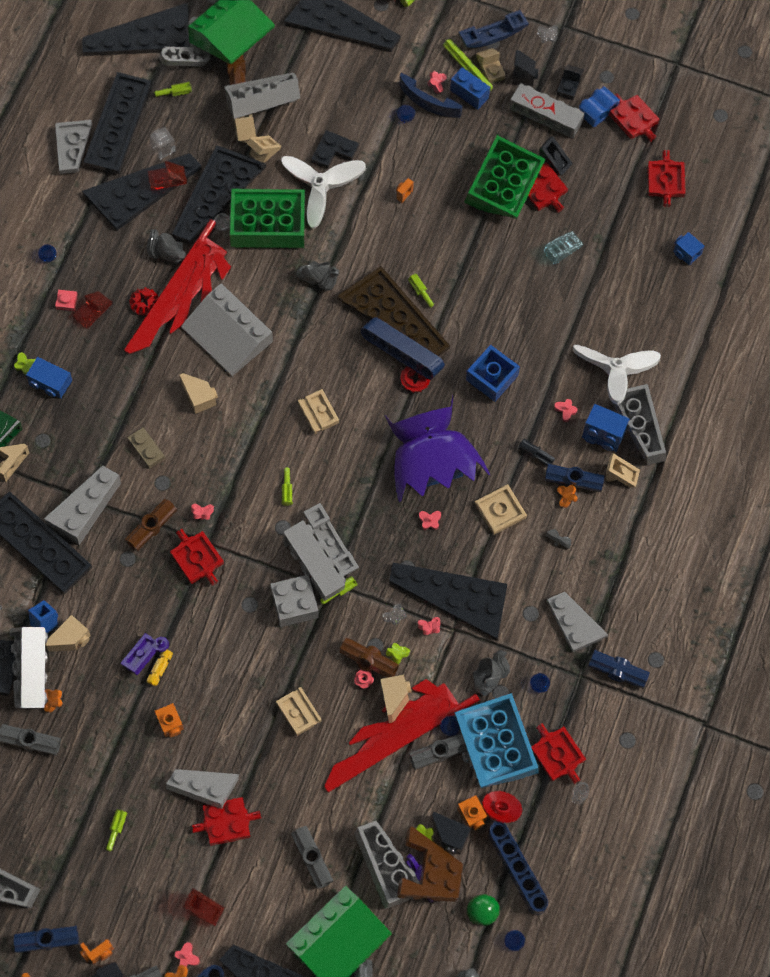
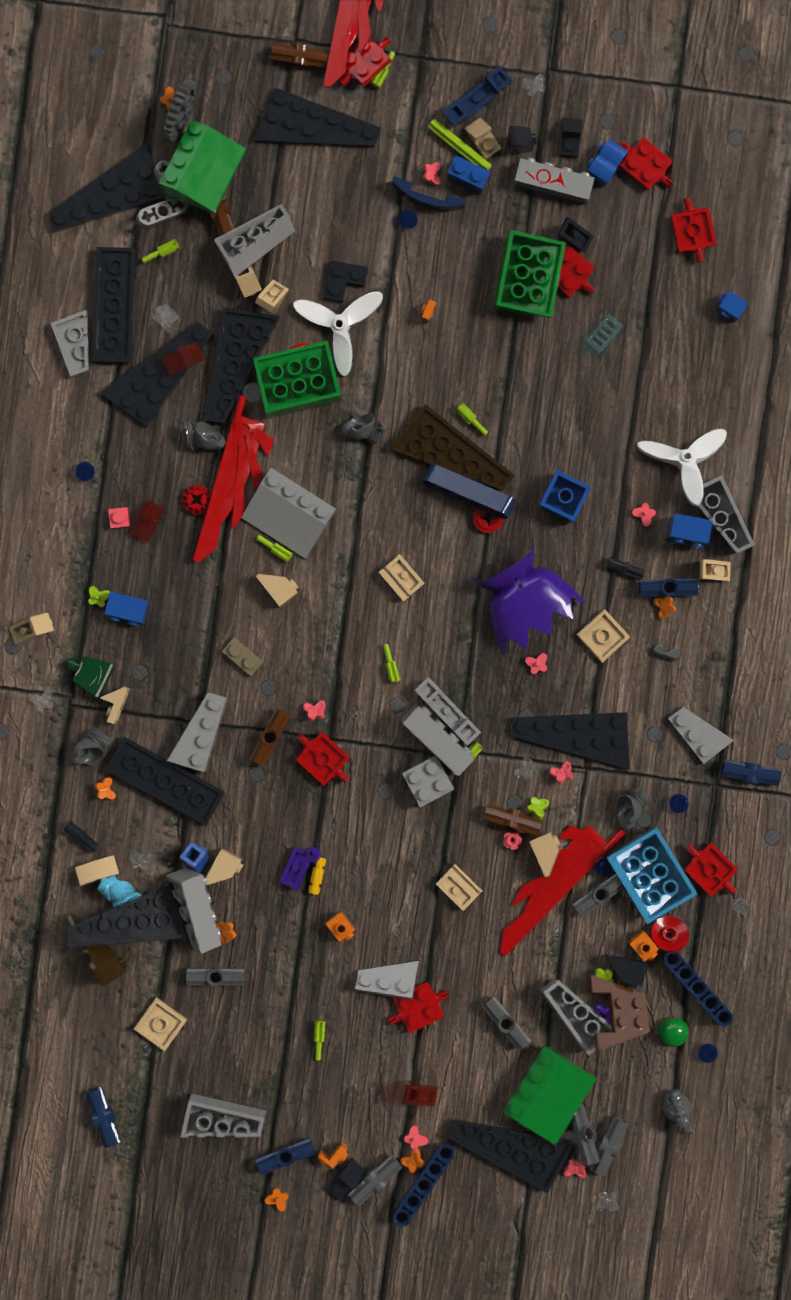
camera: 10 degrees left, 20 degrees up
(206, 360) = (276, 549): none -> lime axle

